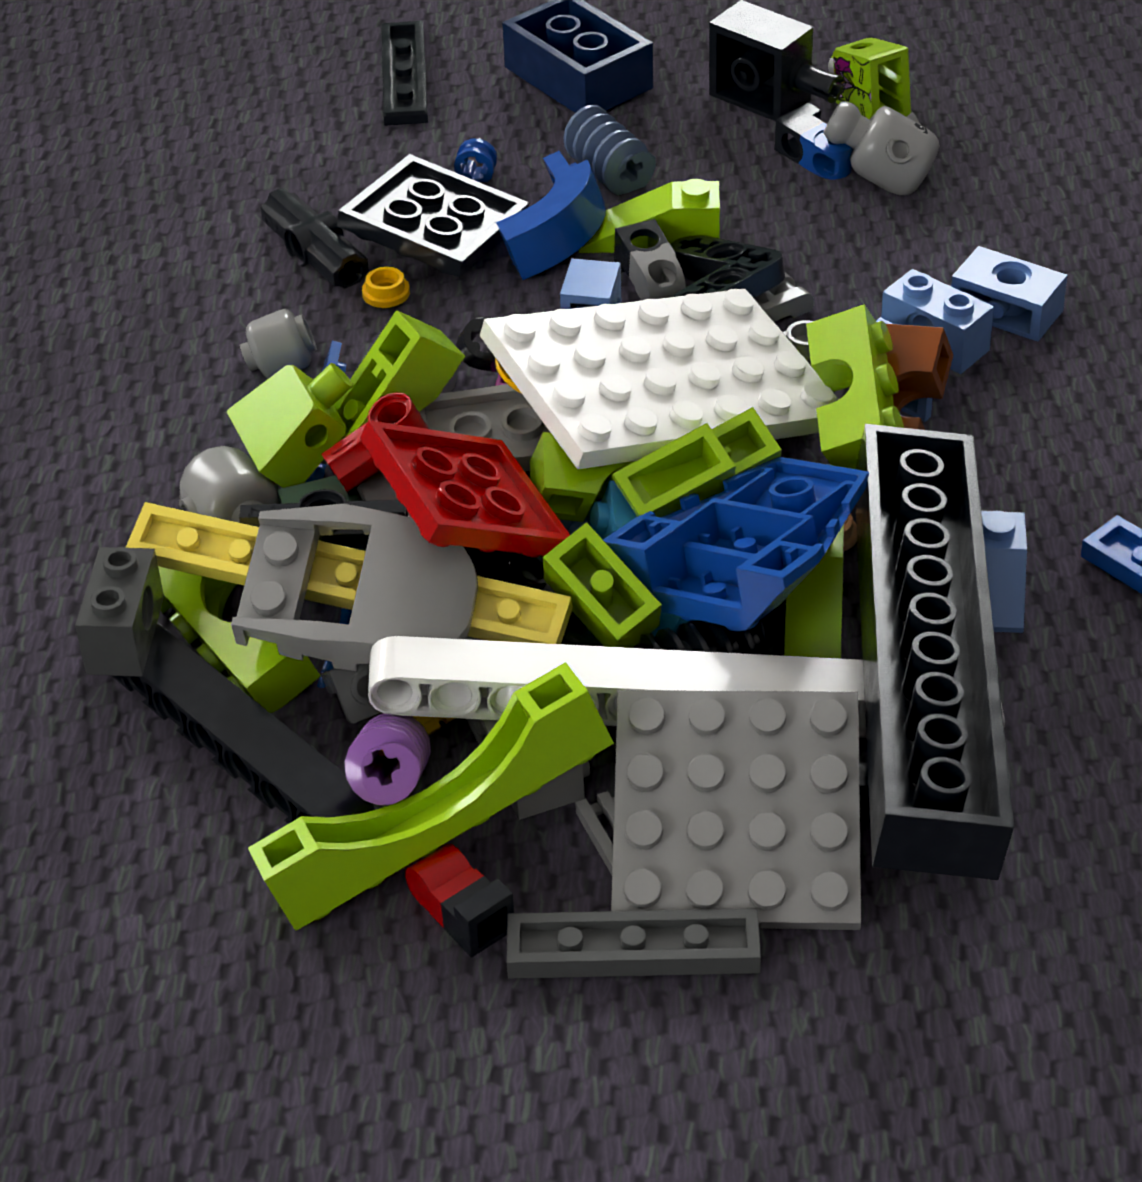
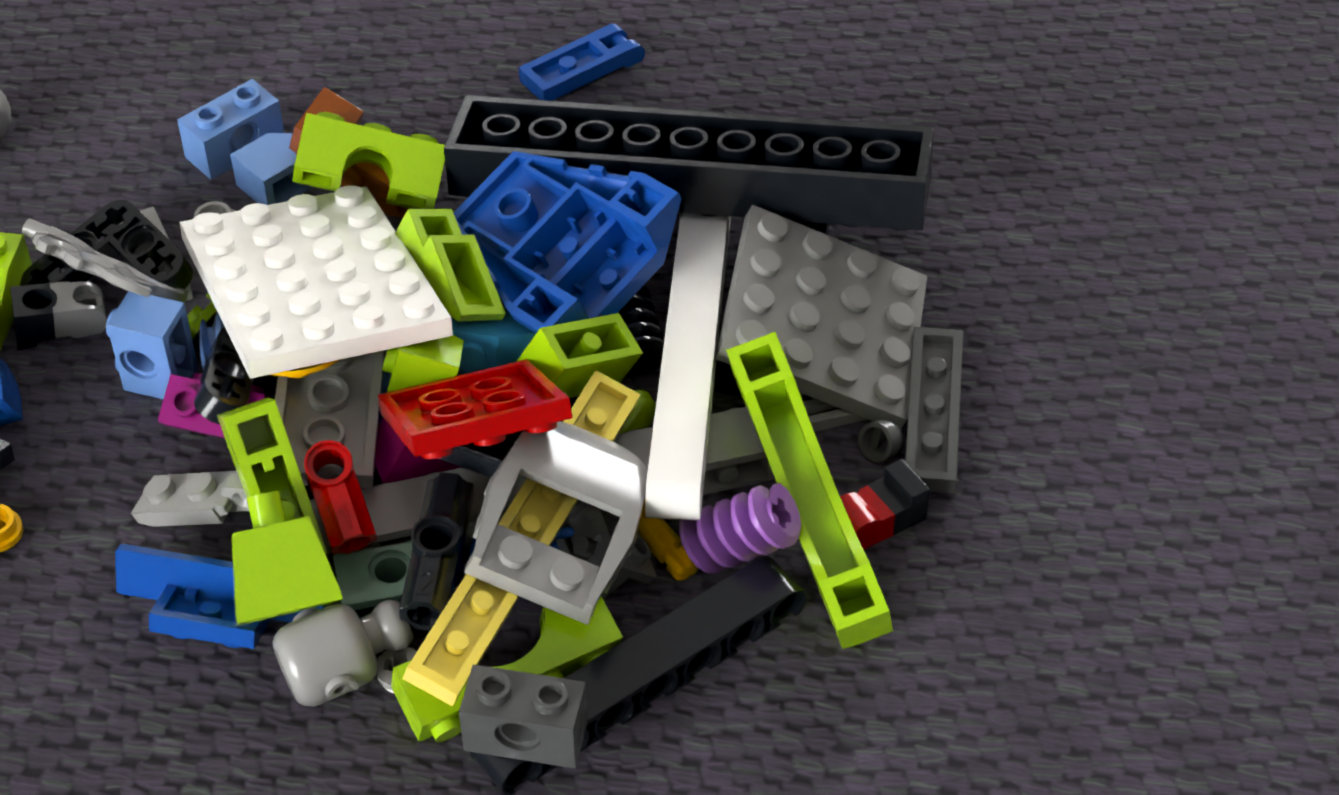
camera: 85 degrees left, 5 degrees up
(277, 342) = (70, 616): light grey head -> none
(579, 896) = (875, 434): none -> dark grey hinge
(661, 234) = (84, 258): none -> light grey piece
(1022, 293) = (202, 77): medium blue brick -> none

